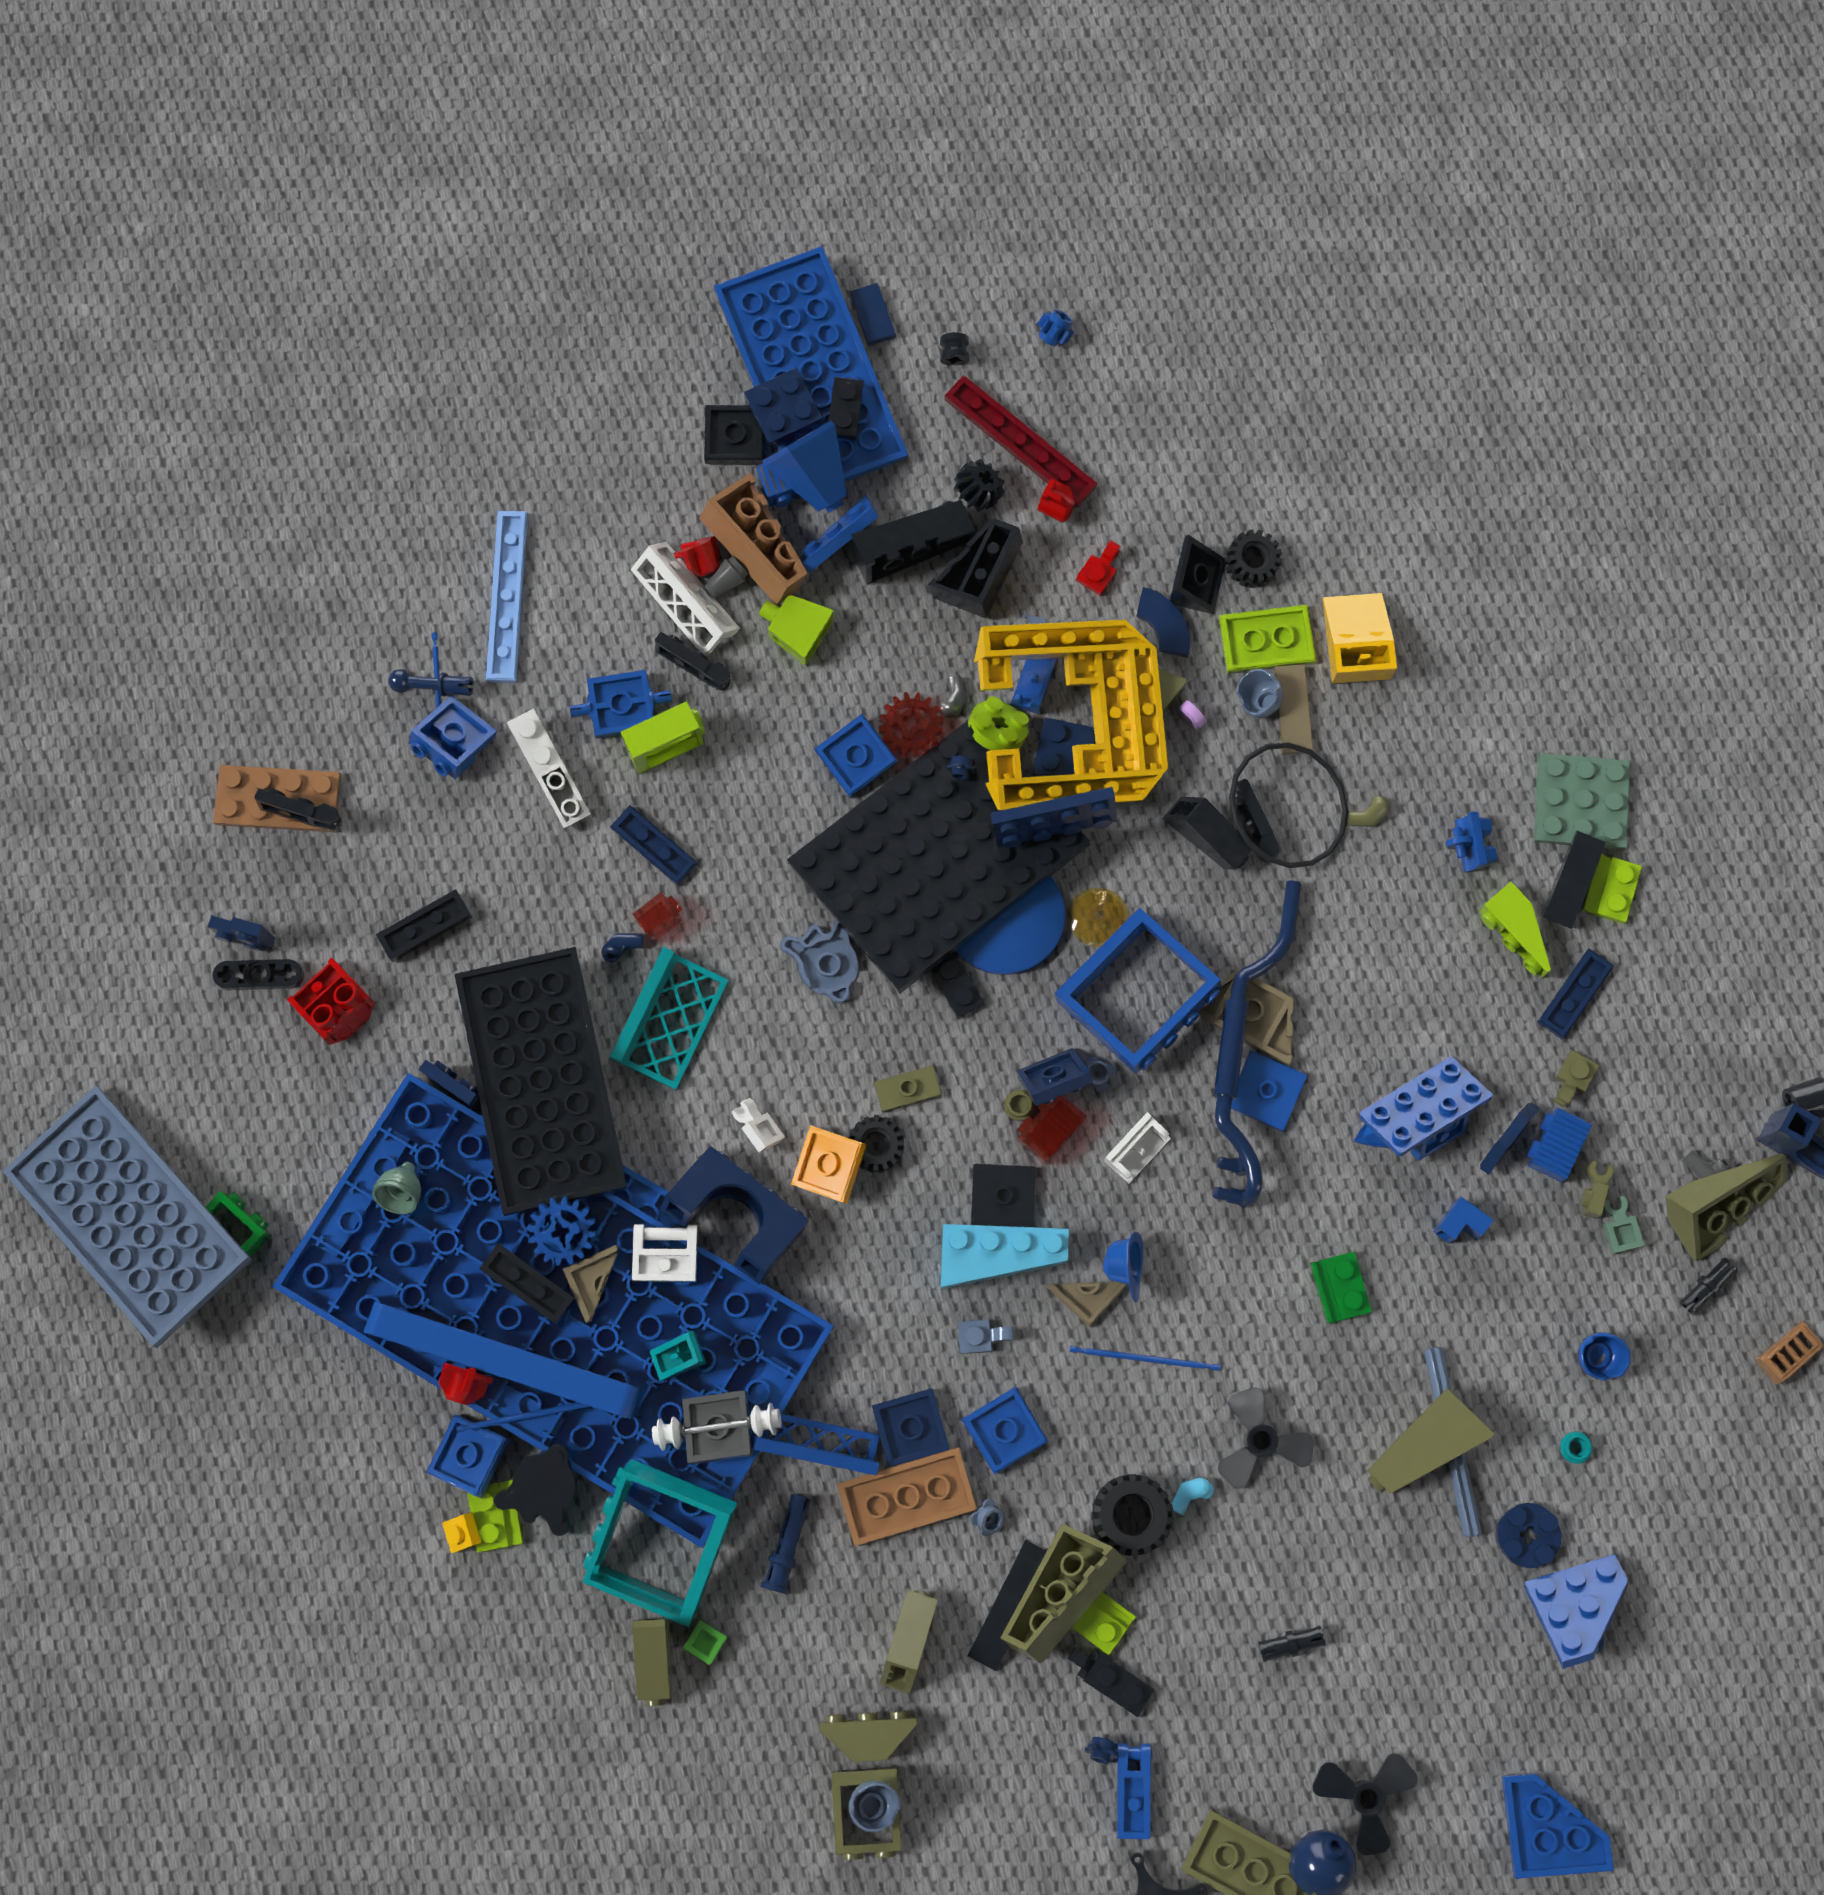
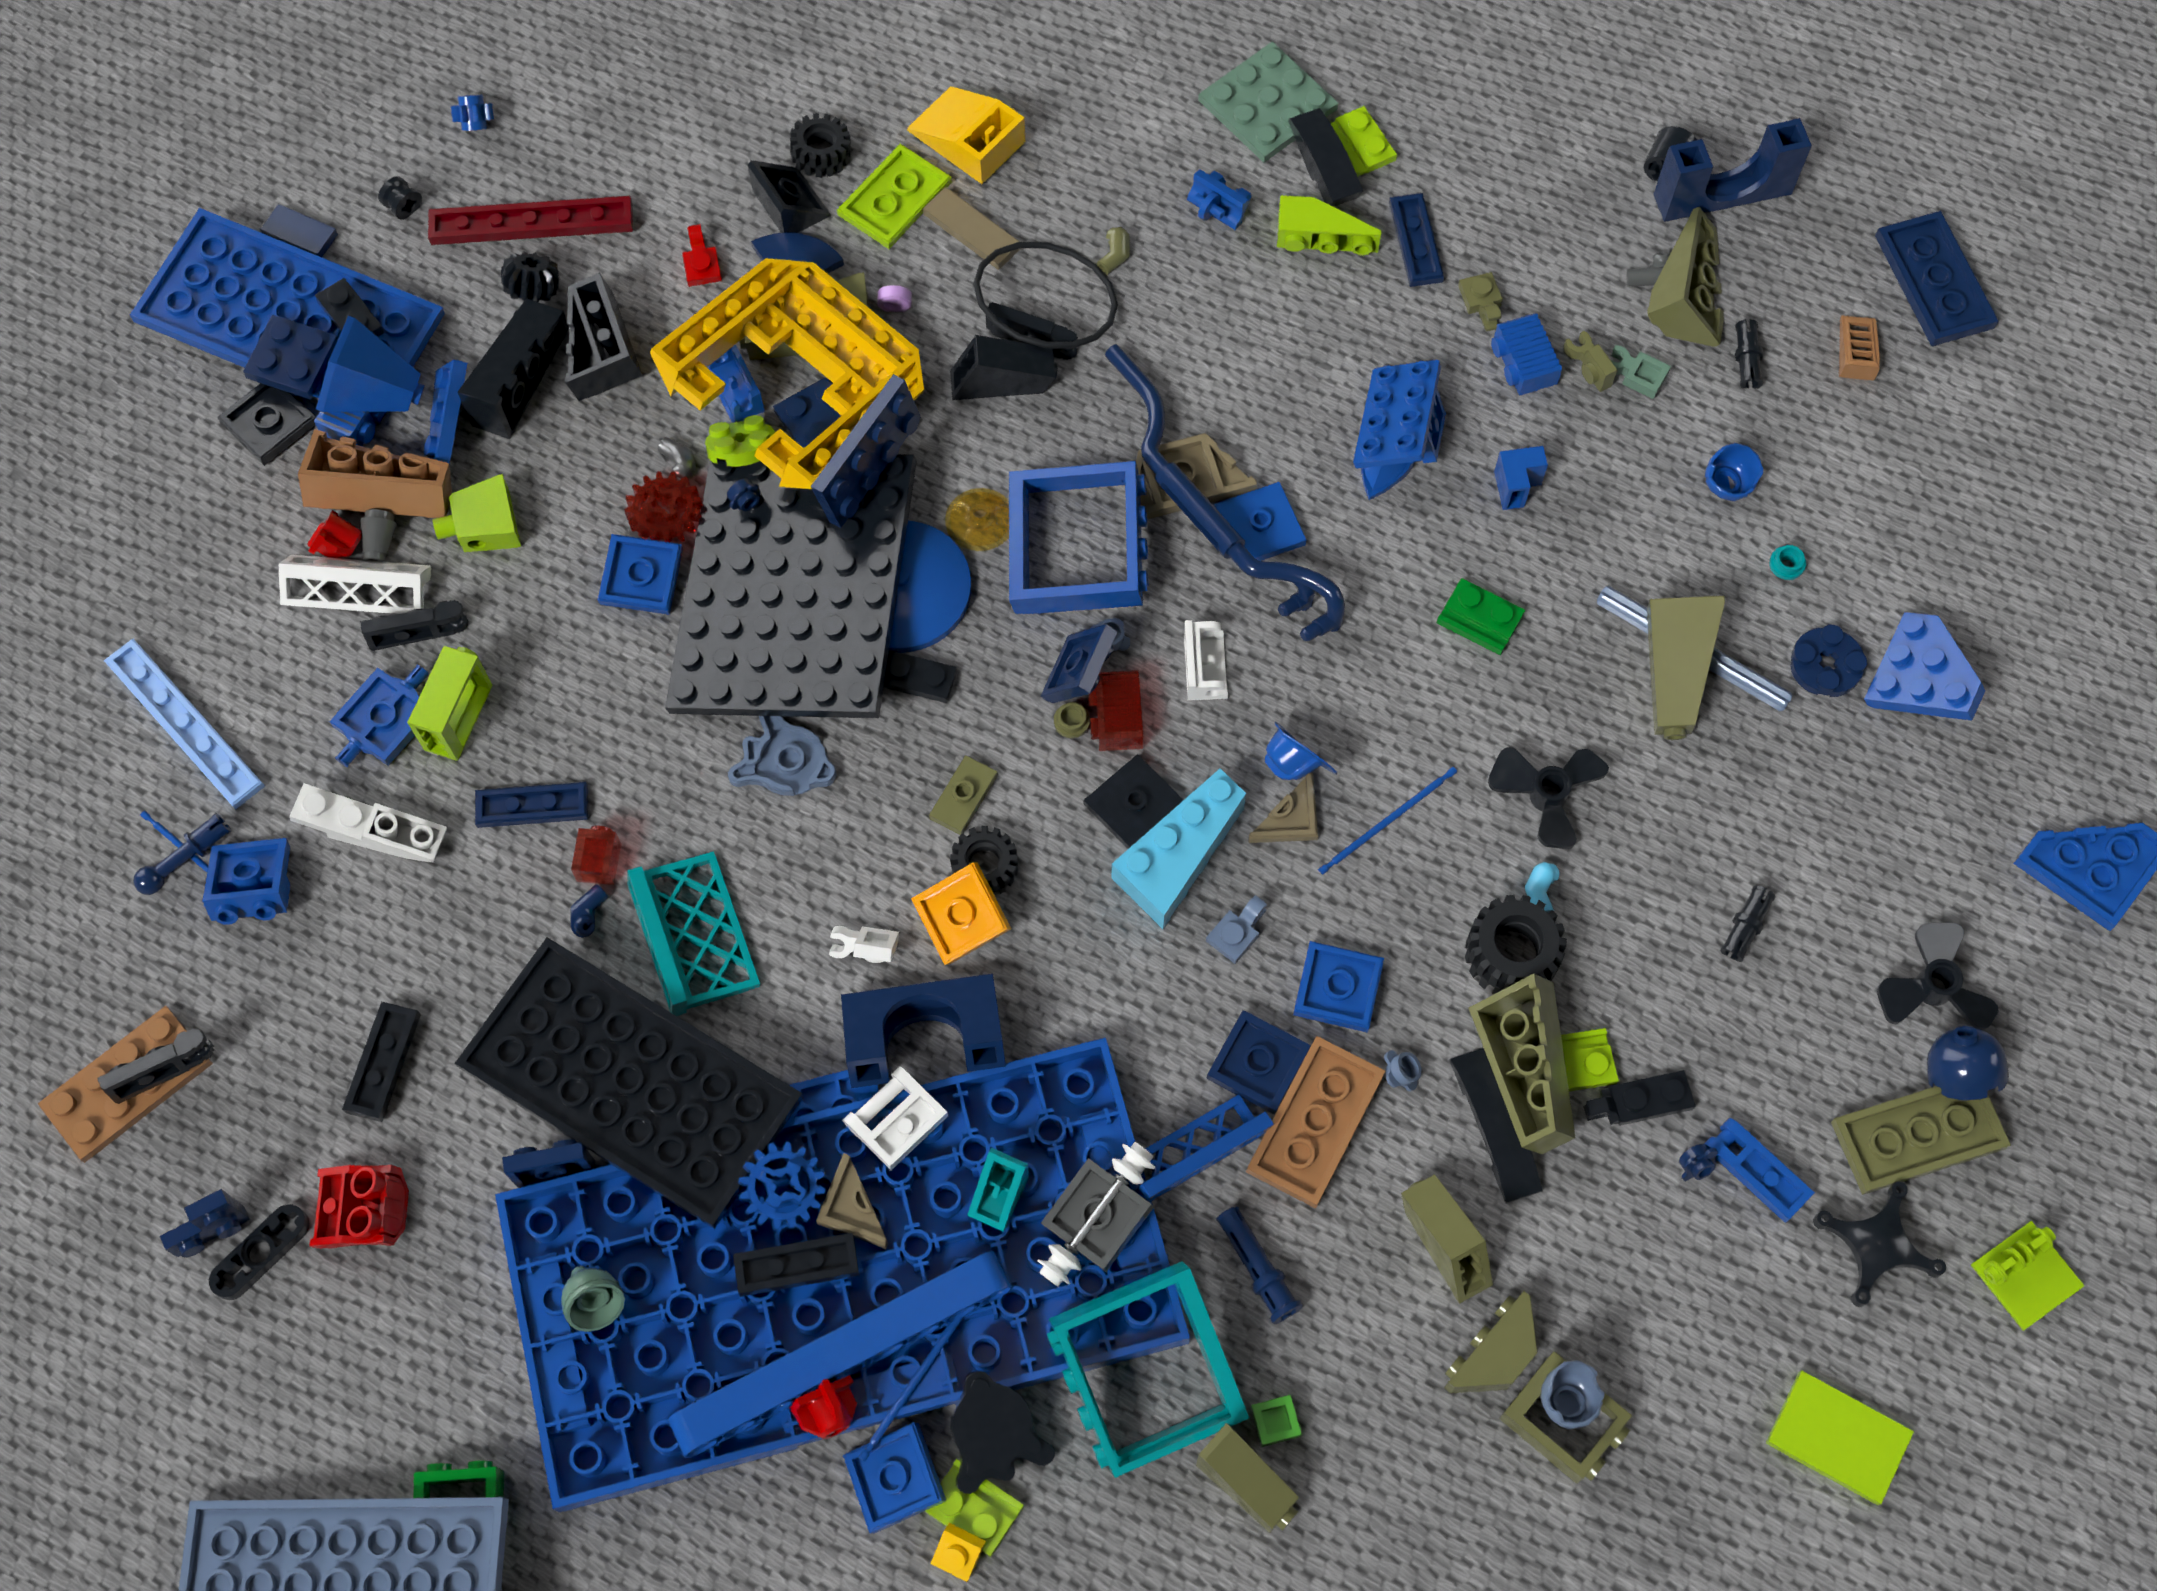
camera: 45 degrees left, 10 degrees down
(1057, 501) = (610, 235): red piece -> none
(1260, 693) = (932, 234): sand blue hair -> none
(1509, 1137) = (1486, 387): dark blue tile -> none

